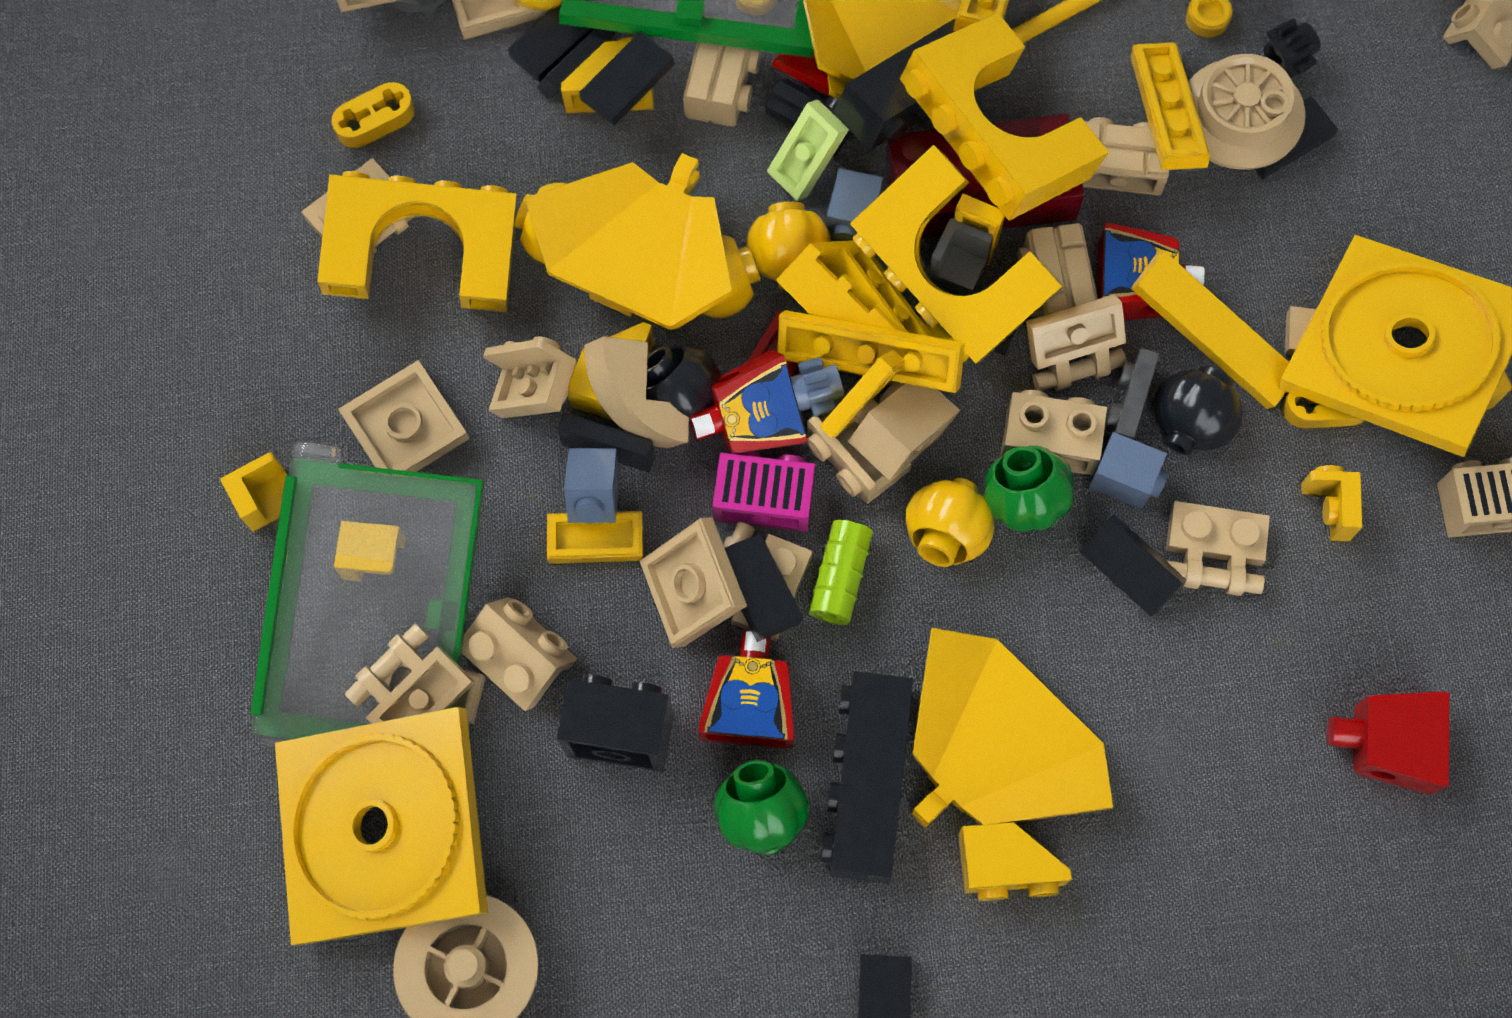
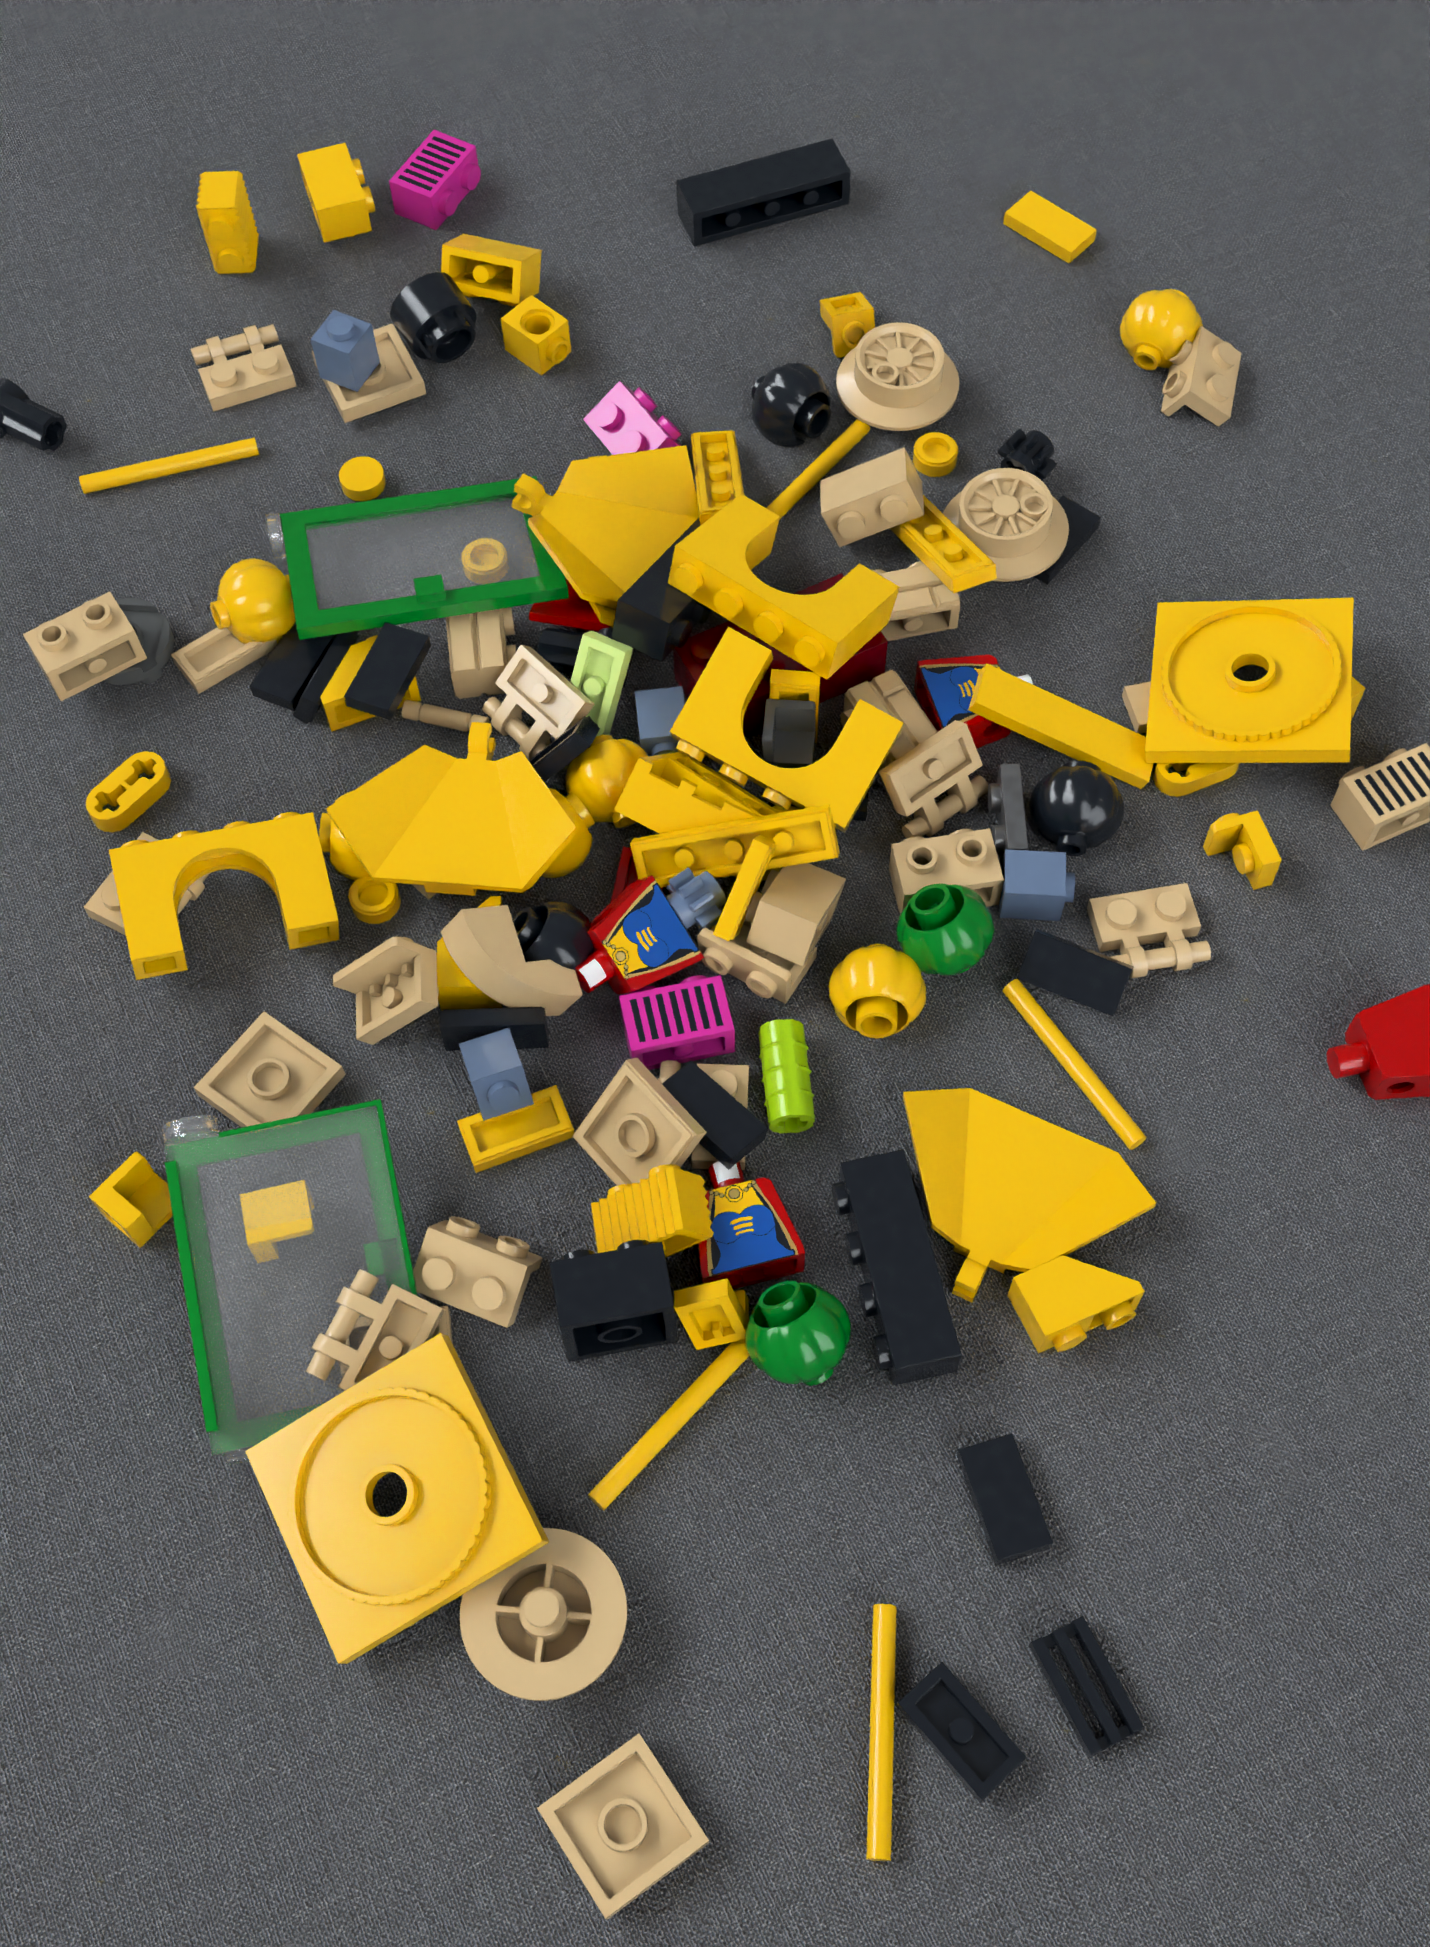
camera: 20 degrees left, 10 degrees down
(544, 289) = (373, 900): none -> yellow tile
(630, 841) = (668, 1424): none -> yellow bar
(667, 133) = (440, 716): none -> tan wheel
(681, 662) = (658, 1209): none -> yellow brick
(697, 764) = (712, 1313): none -> yellow bracket
(753, 205) = (565, 748): none -> black tile
(758, 147) = (541, 692): none -> tan plate
(1099, 648) = (1074, 1064): none -> yellow bar
(1127, 44) = (871, 497): none -> tan brick

